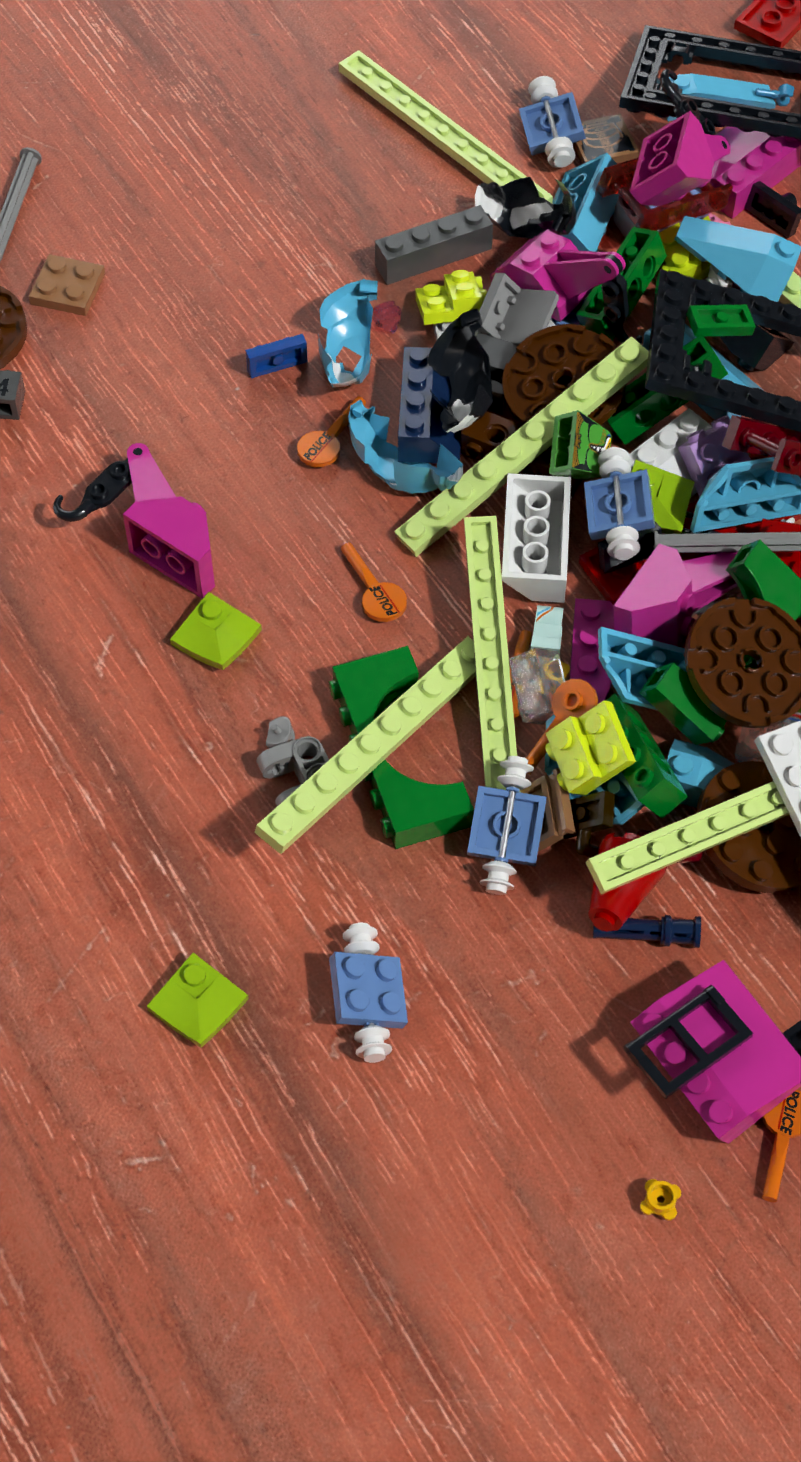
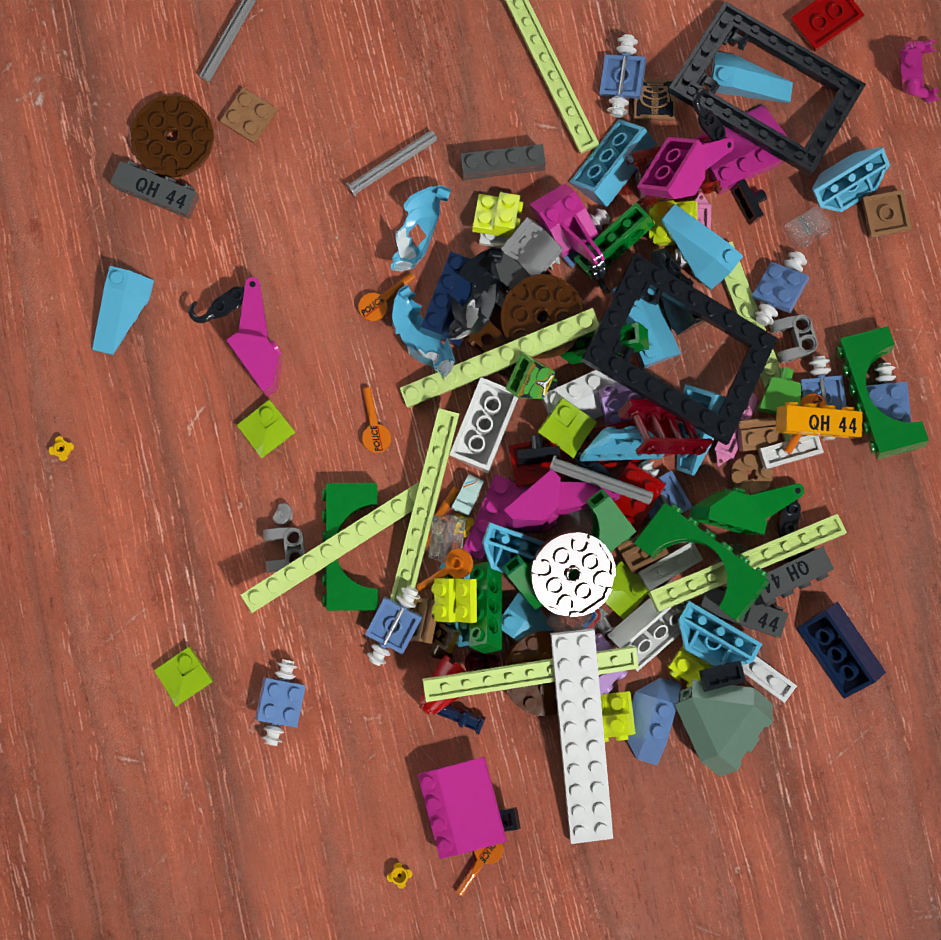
camera: 15 degrees right, 25 degrees up
(276, 355) = (359, 223): blue plate -> none
(280, 287) = (391, 163): none -> light grey axle
(387, 316) = (452, 212): clear pink plate -> none
(521, 211) = (573, 160): black animal -> none
(619, 504) = (538, 430): medium blue plate -> none
(704, 1060) = (437, 788): black window -> none
(720, 320) = (656, 313): green plate -> none
(783, 94) = (797, 97): dark azure hand -> none

